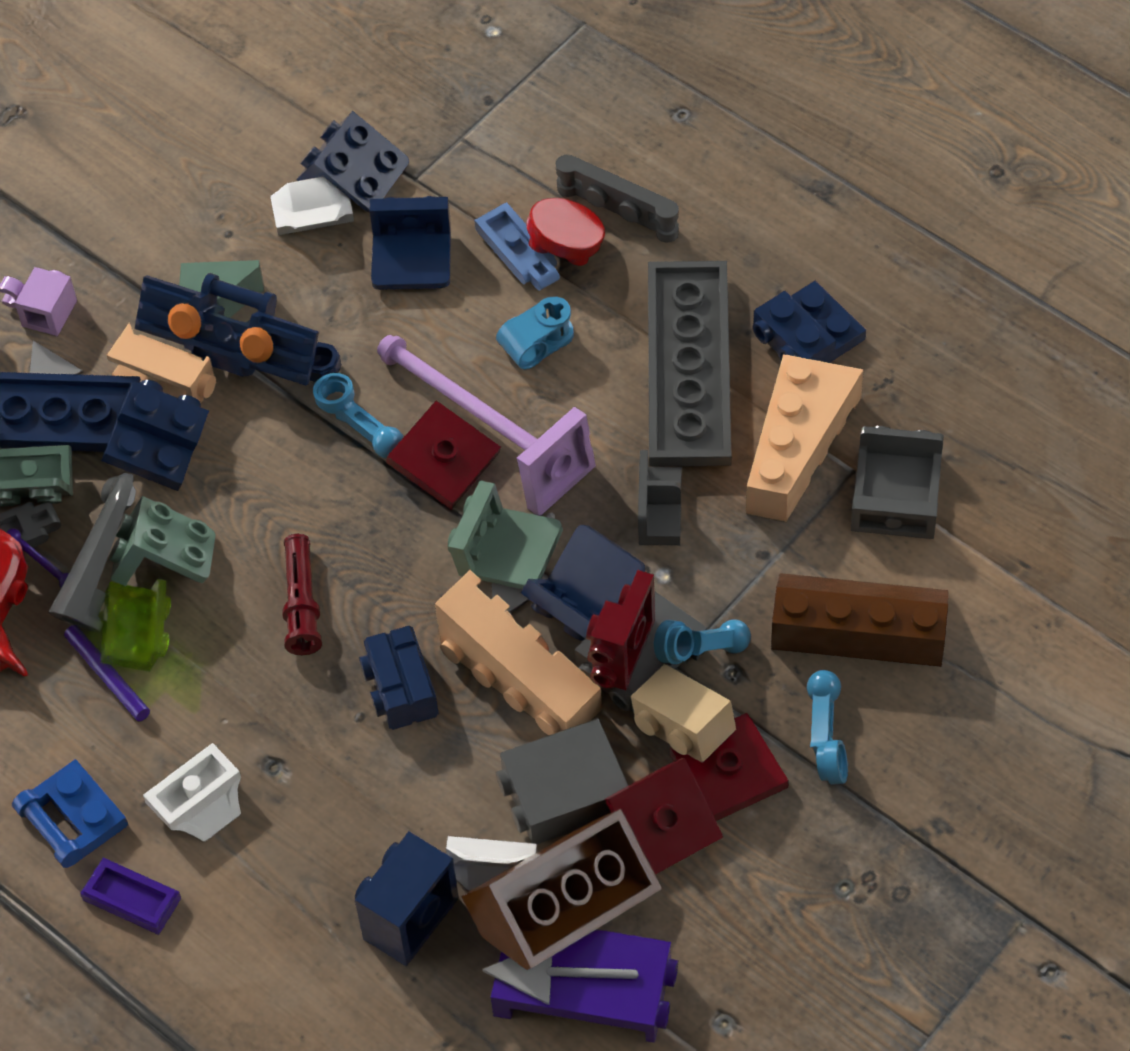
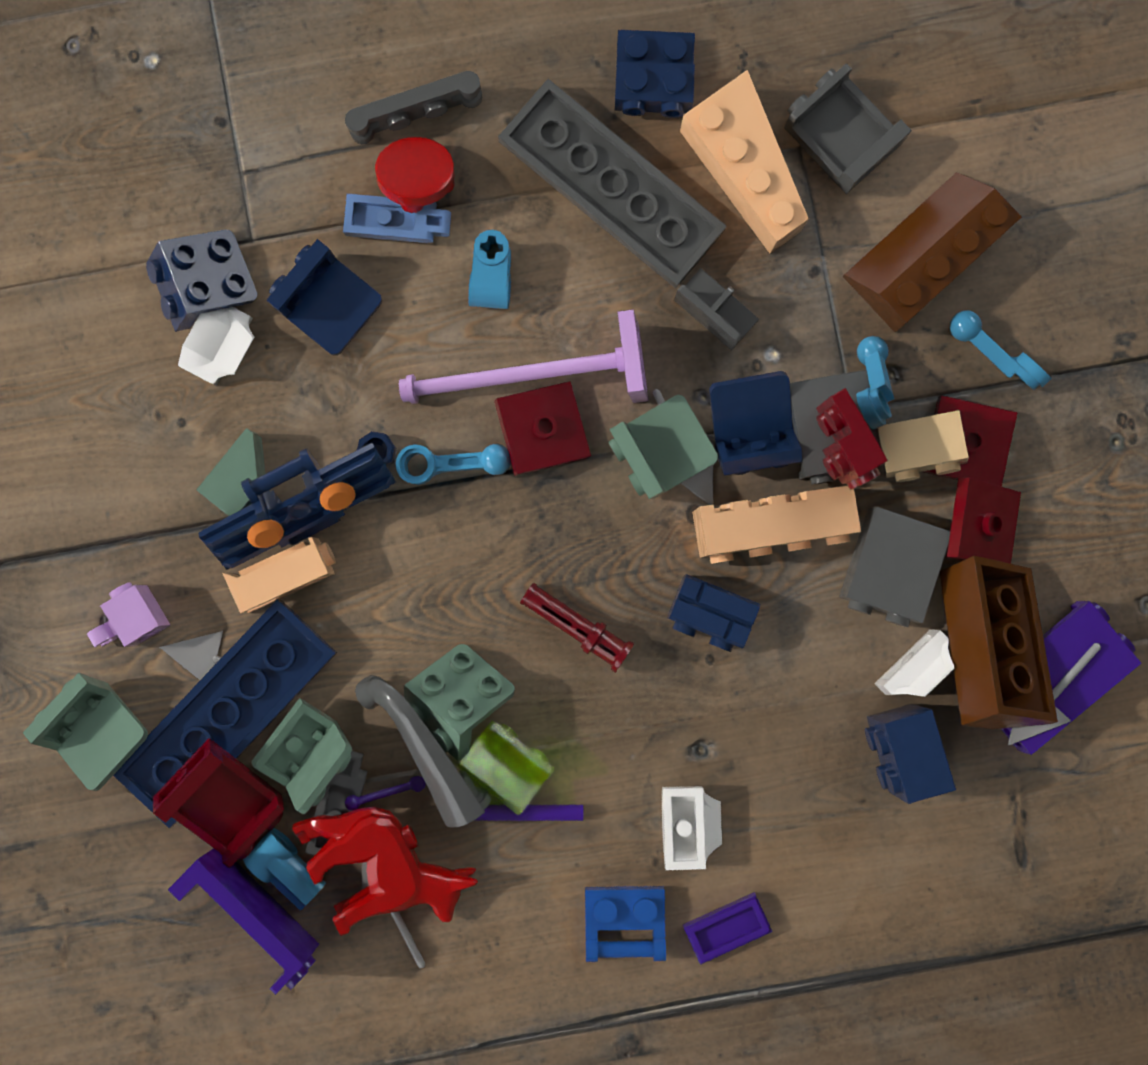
camera: 55 degrees left, 30 degrees up
(155, 434) = (344, 628): dark blue plate -> none

